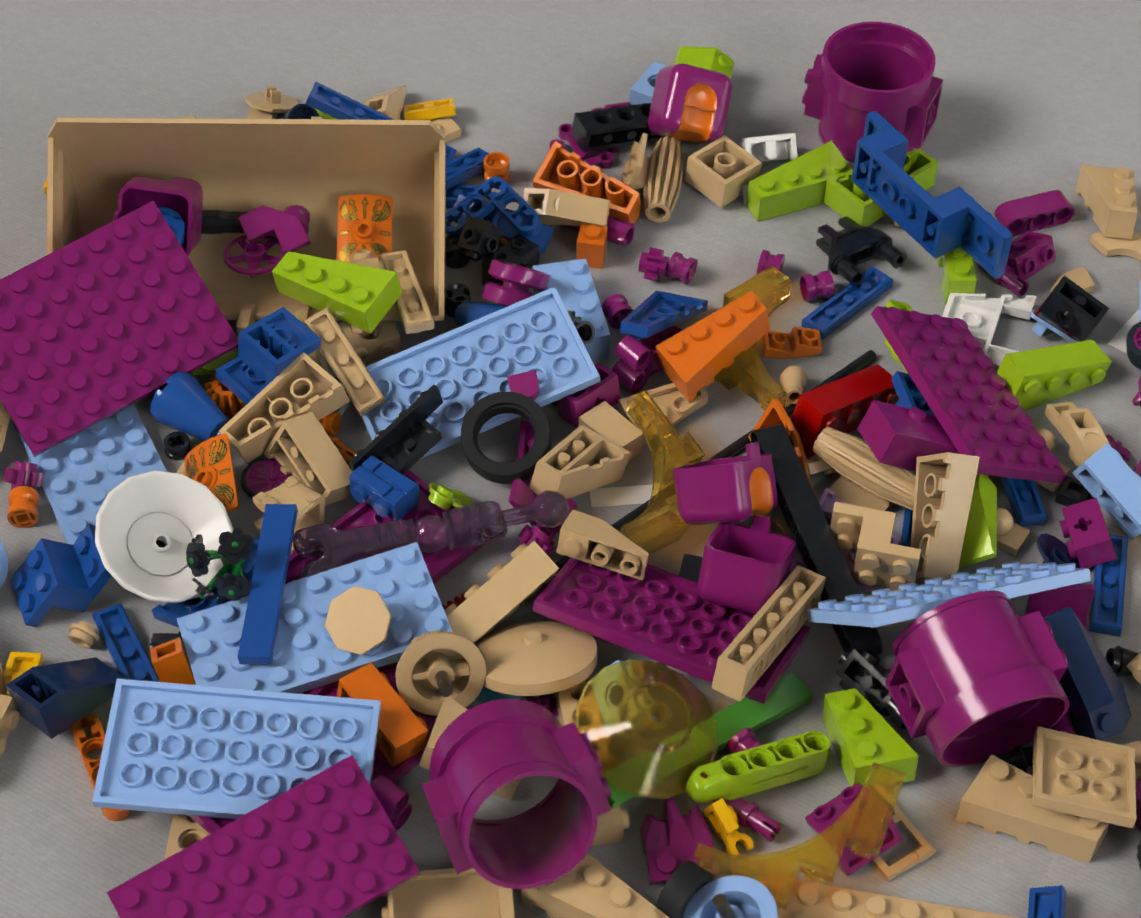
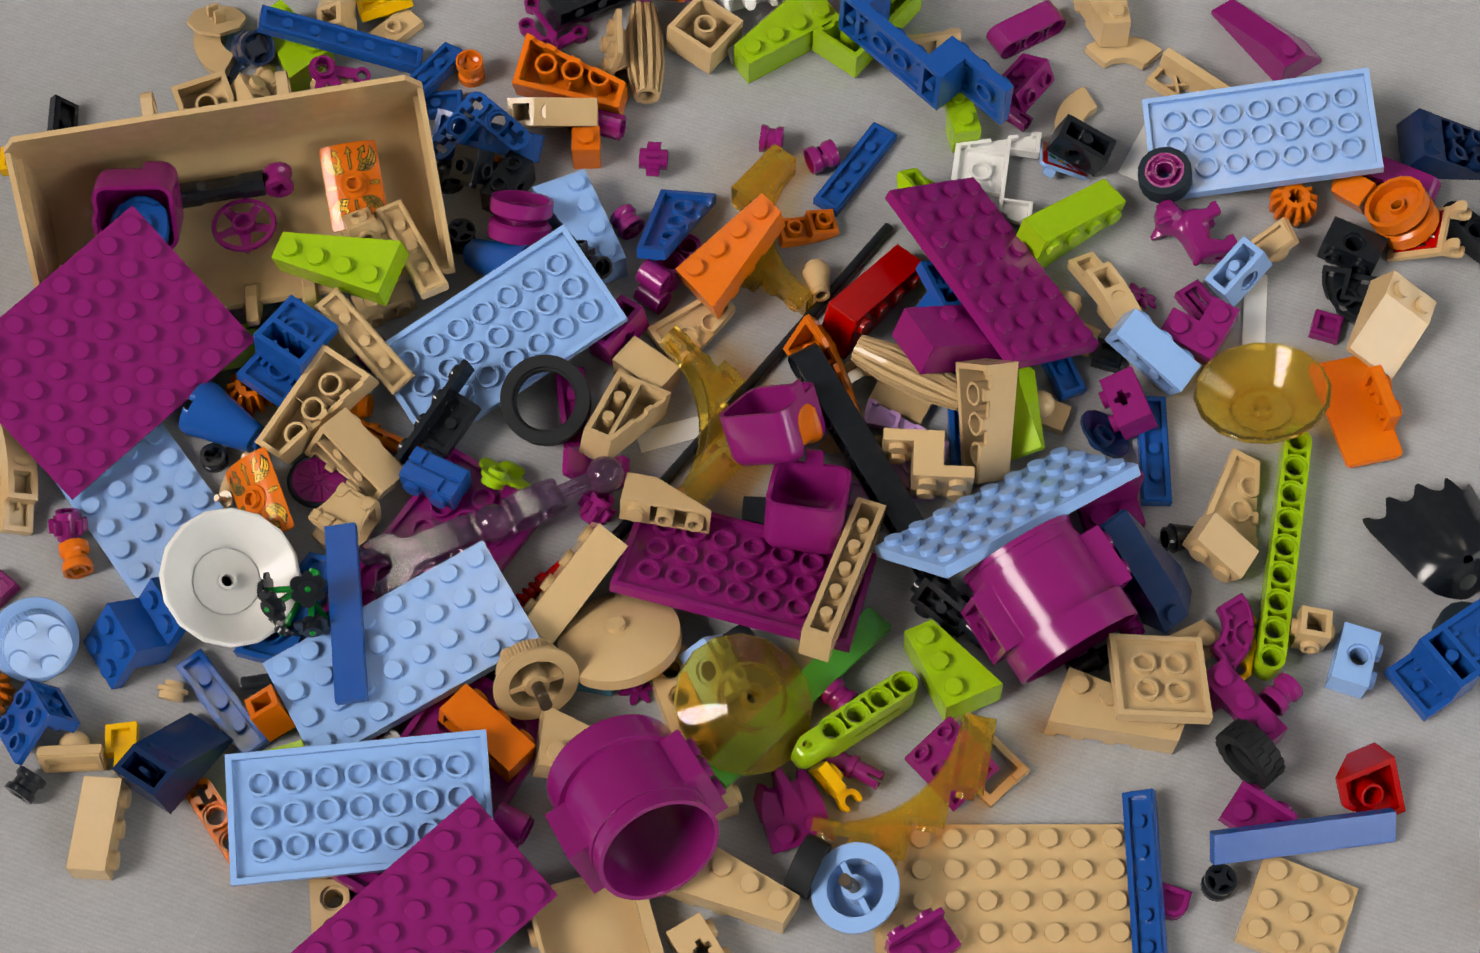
camera: 10 degrees left, 15 degrees up
(266, 221) = (272, 192): magenta tile -> none
(358, 620) = (445, 644): tan piece -> none
(525, 383) = (553, 340): magenta tile -> none
(681, 268) = (682, 157): magenta wheel -> none
(855, 246) = (851, 103): black connector -> none

